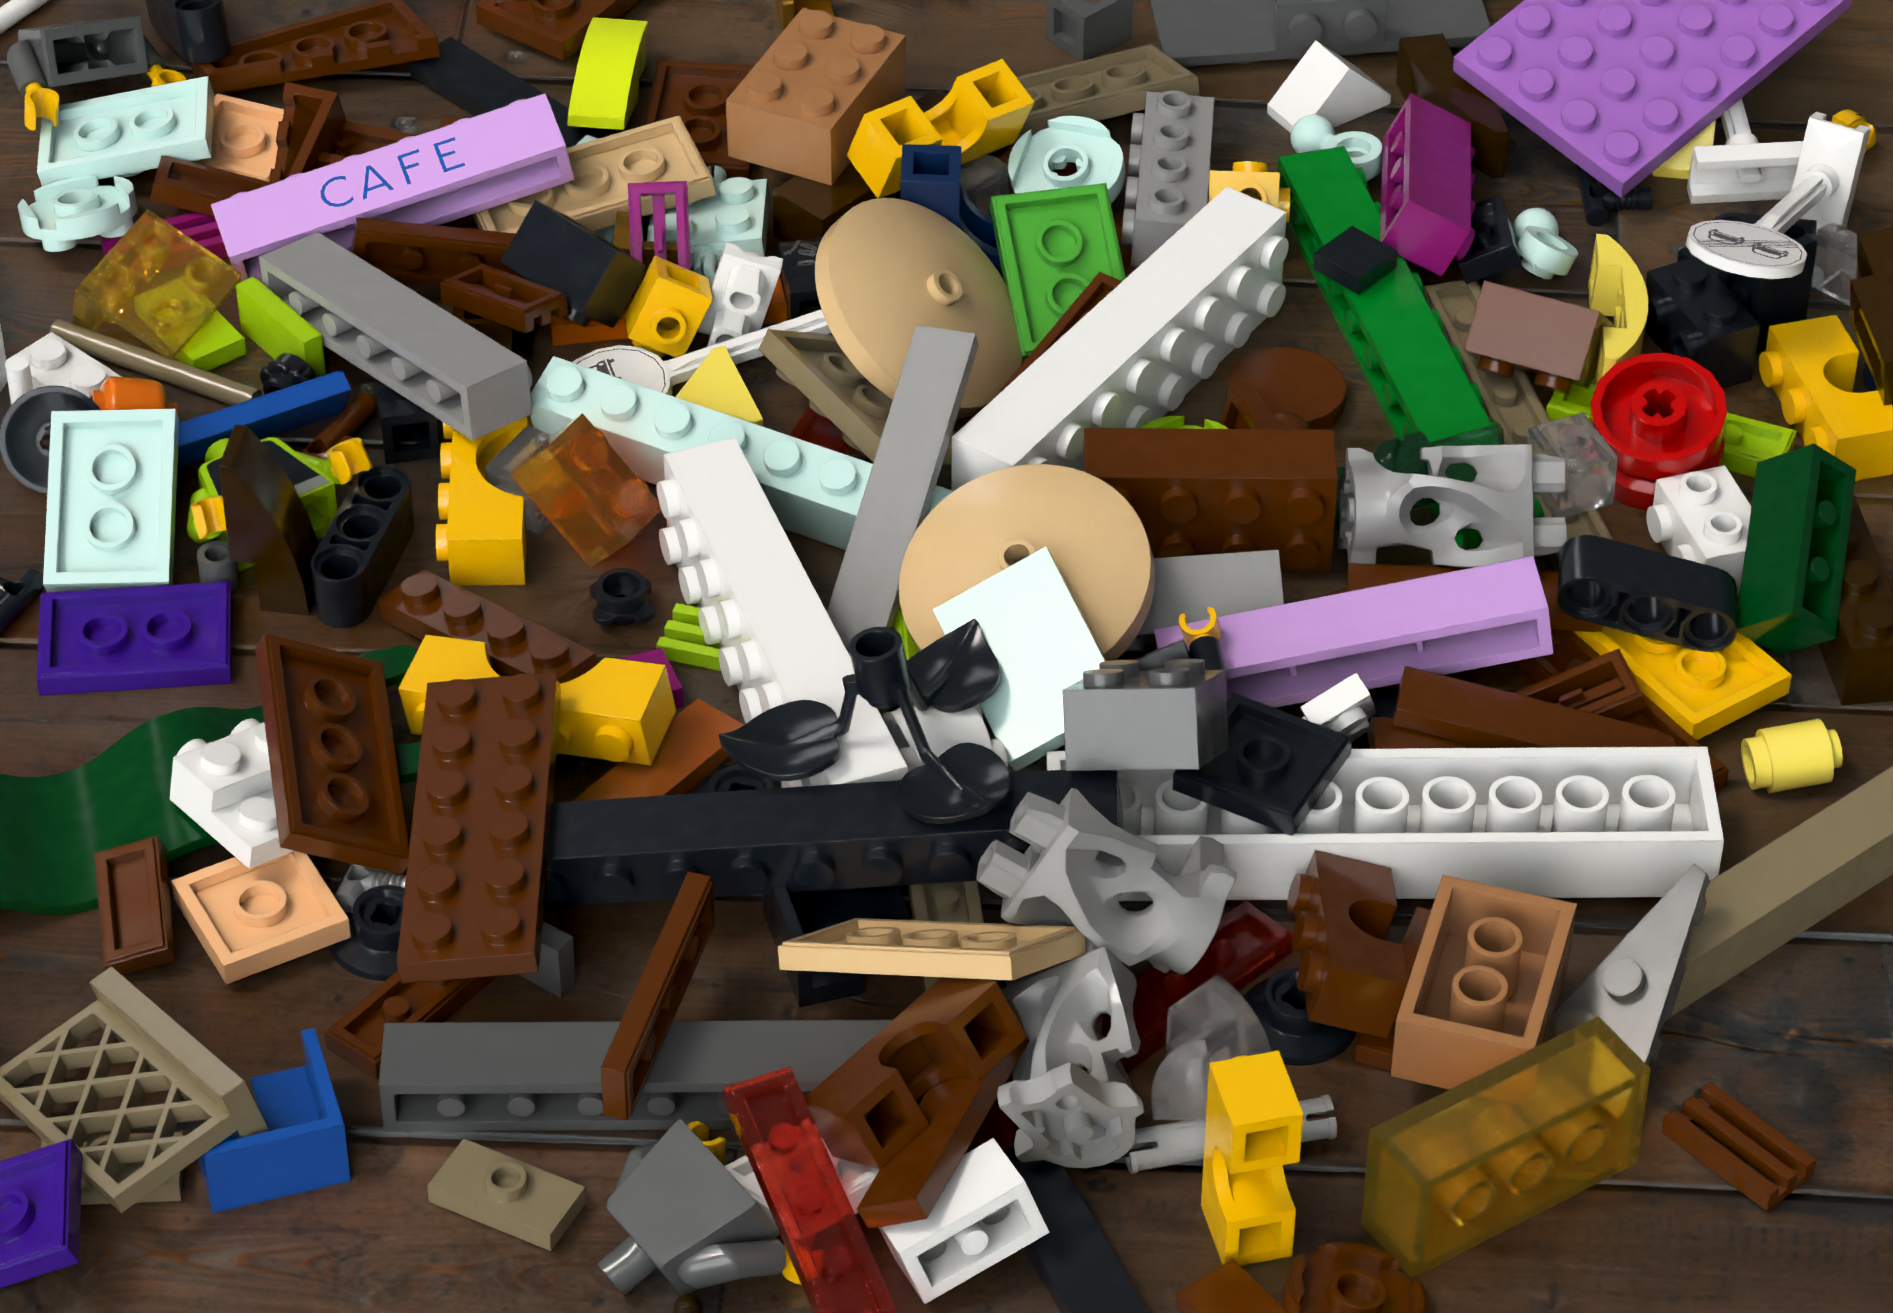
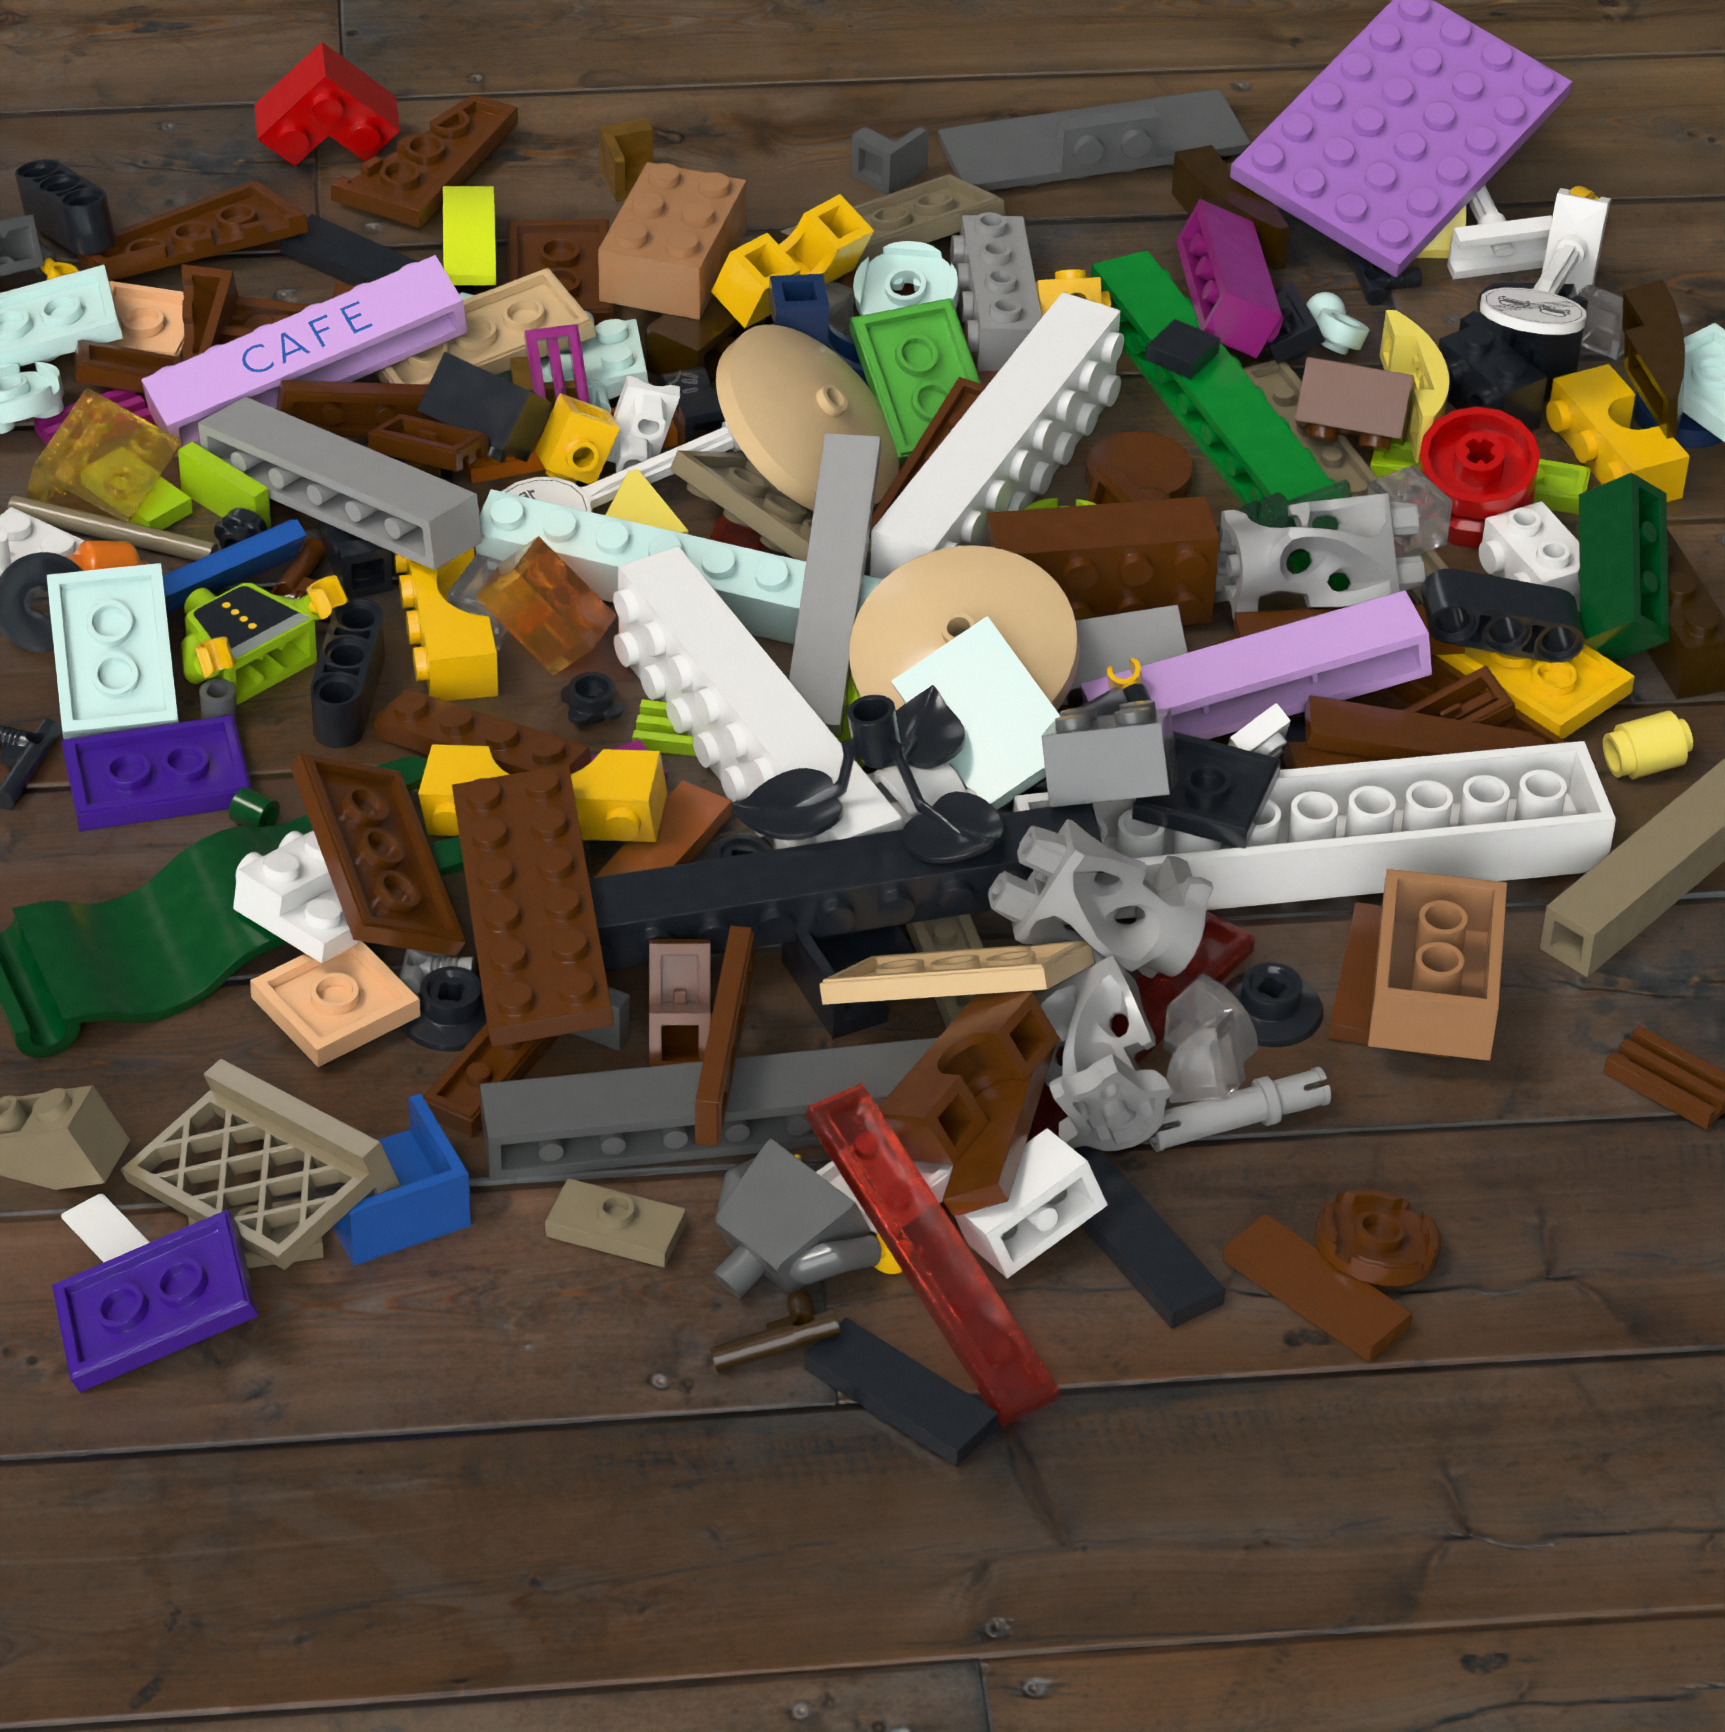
camera: 10 degrees left, 0 degrees up
(135, 906) = (221, 1005): reddish brown tile -> none
(226, 688) = (253, 809): none -> dark green piece
(267, 524) = (269, 661): dark brown slope -> none
(626, 933) = (678, 1000): none -> reddish brown brick
(1248, 1138) = (1273, 1094): yellow arch -> none
(1317, 133) = (1116, 242): light aqua plate -> none
(1326, 87) = (1113, 207): white slope -> none
(1340, 926) = (1297, 924): reddish brown arch -> none
(1504, 1146) = (1482, 1094): clear yellow brick -> none
(1643, 974) = (1552, 972): wing -> none

